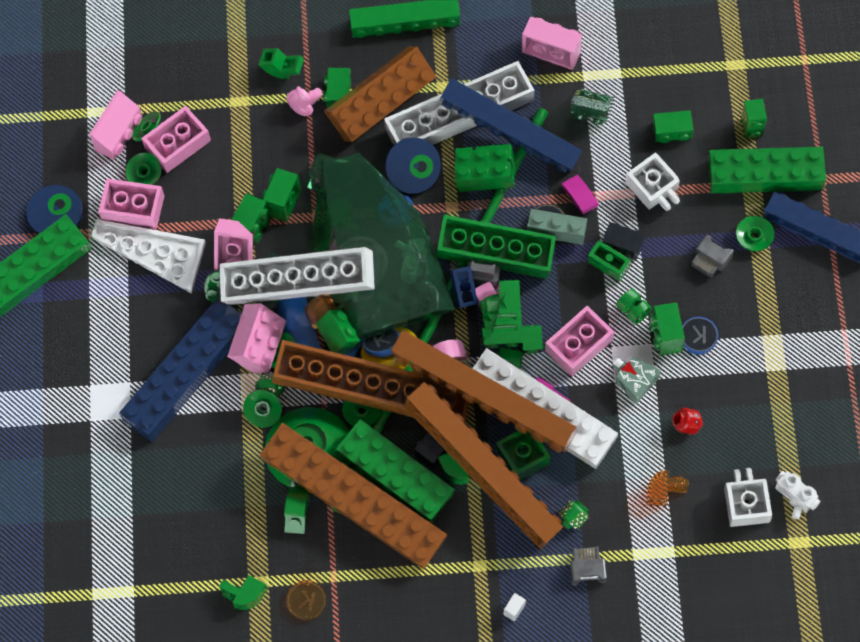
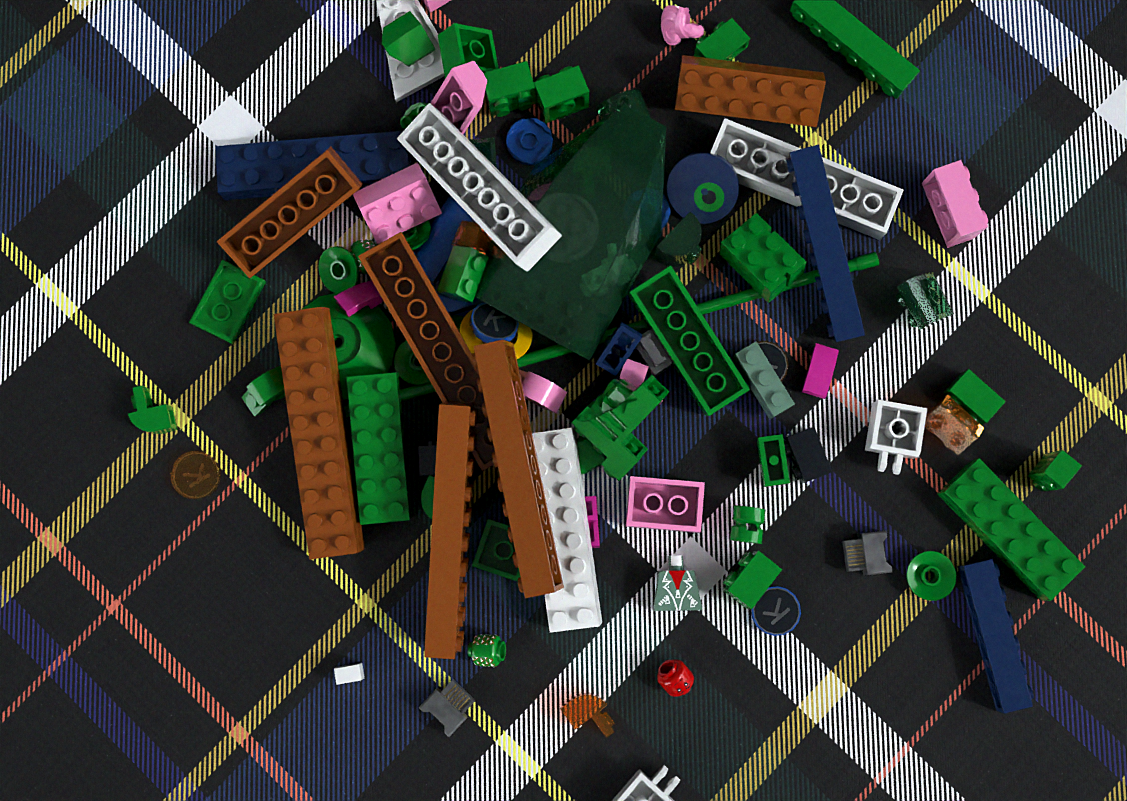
camera: 45 degrees right, 15 degrees up
(162, 252) = (406, 40): none -> green slope
(201, 222) = (464, 44): none -> green brick
(204, 400) = (290, 212): none -> dark orange brick
(217, 492) = (227, 302): none -> green tile
(289, 244) = (531, 149): none -> blue tile
(291, 408) = (358, 297): none -> dark pink slope
(435, 203) = (681, 243): none -> clear green brick
(678, 149) = (952, 425): none -> clear orange brick

